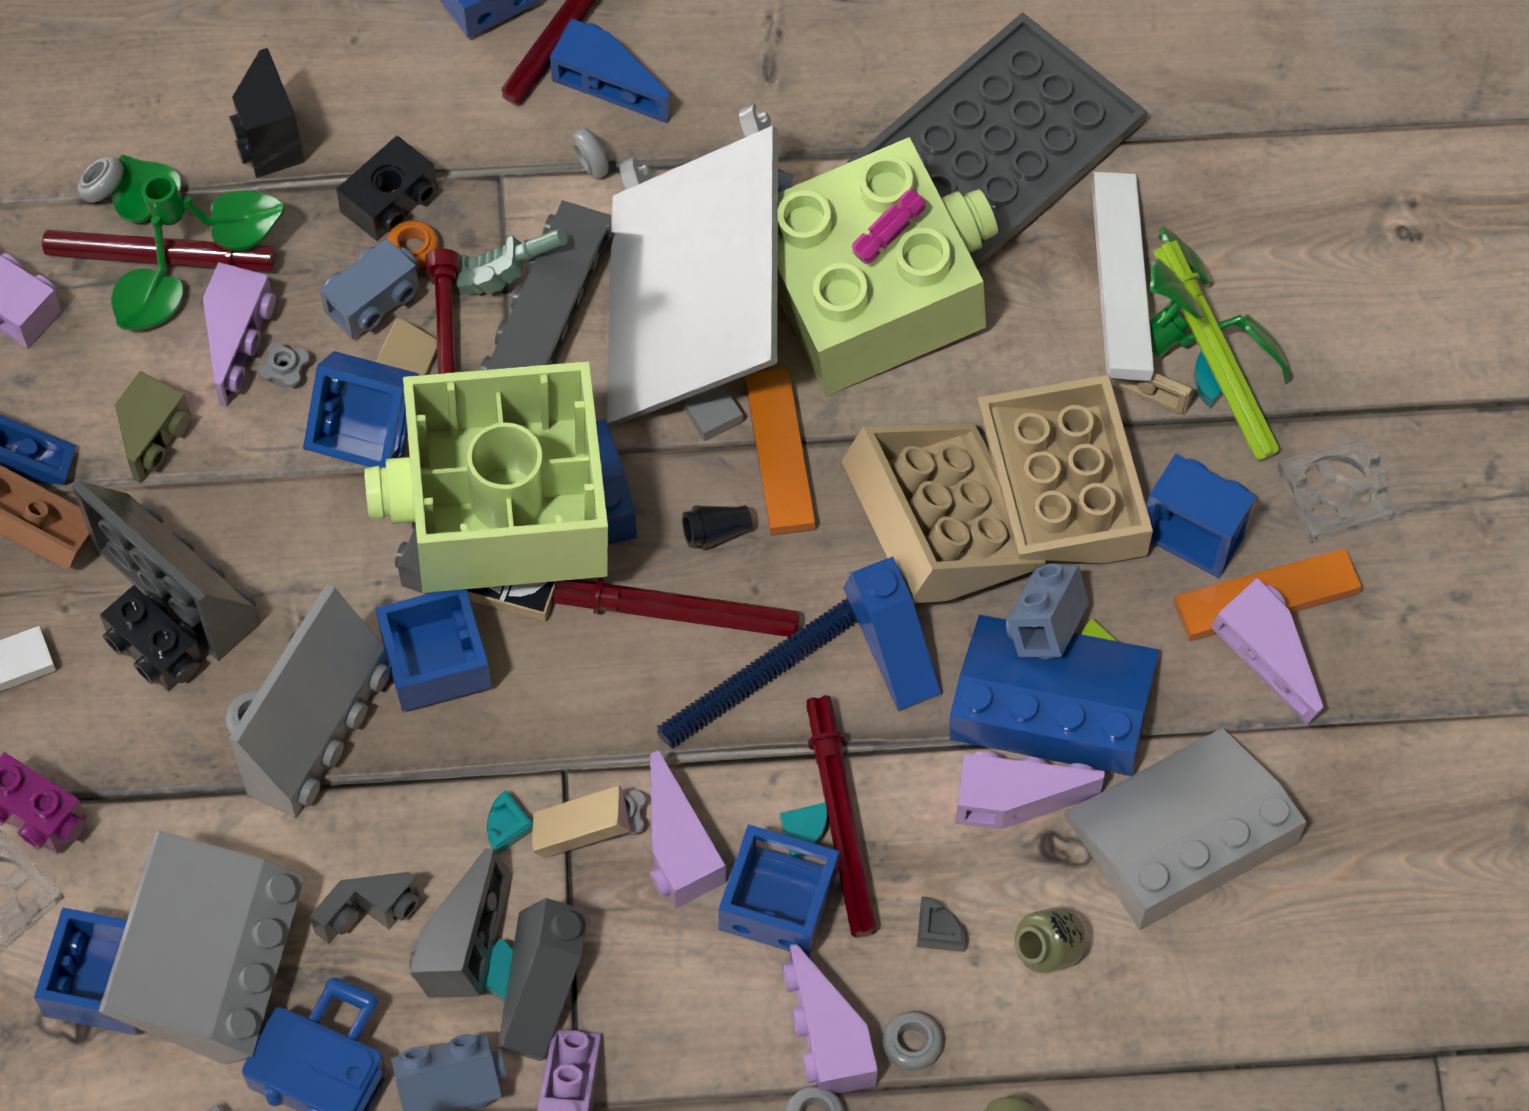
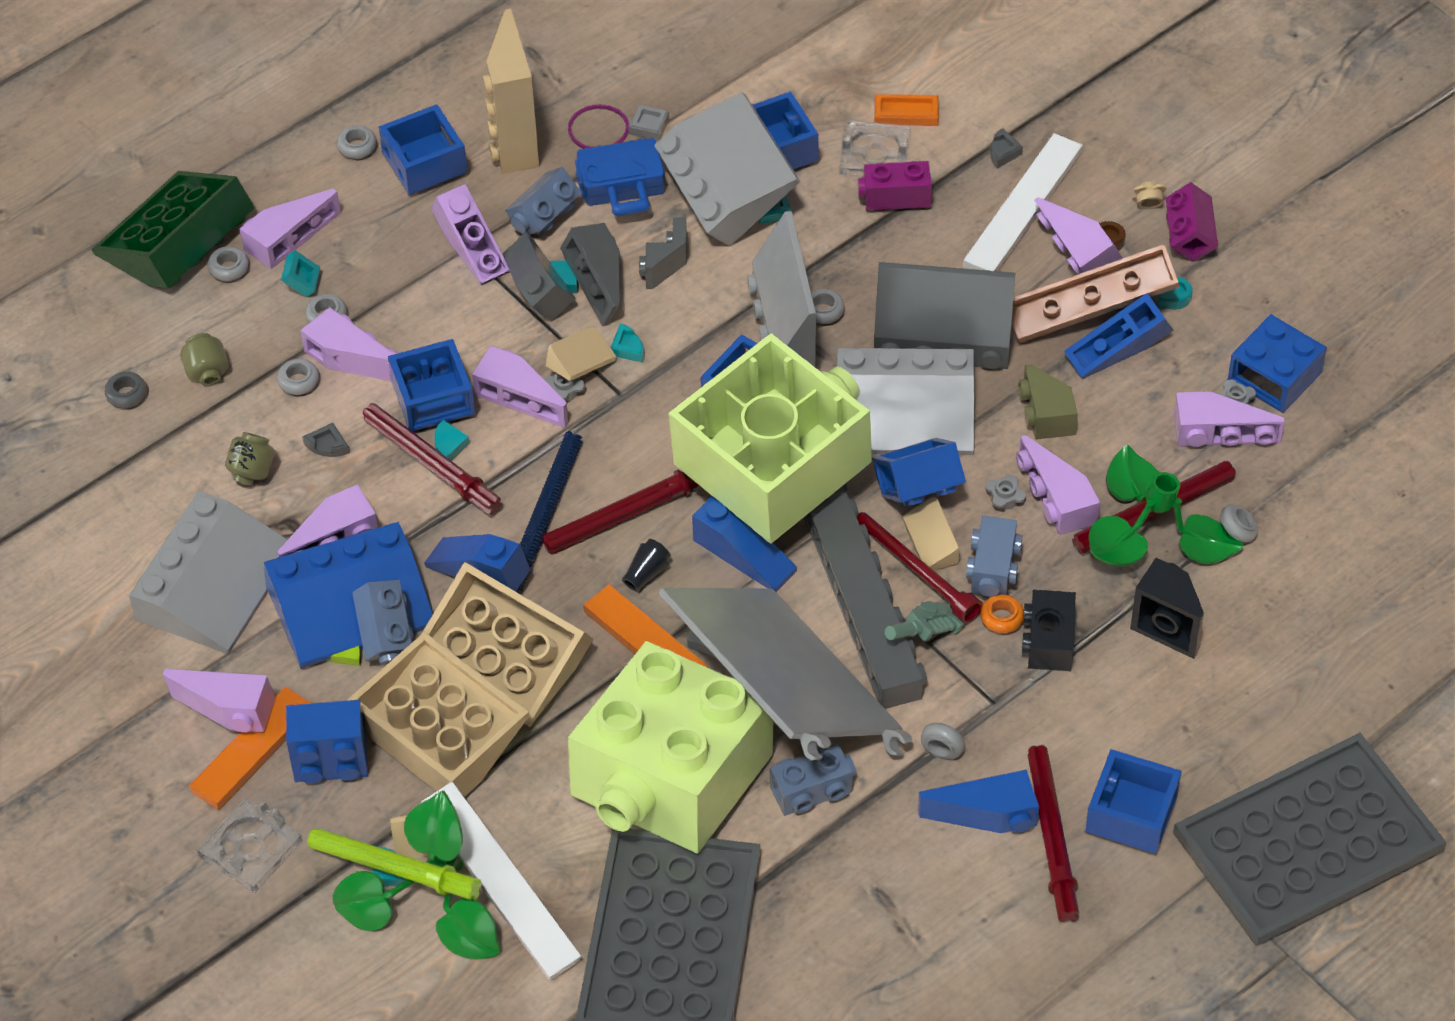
camera: 145 degrees right, 10 degrees down
(283, 528) = (914, 395): none -> light grey slope
(888, 226) = (655, 715): dark pink axle -> none

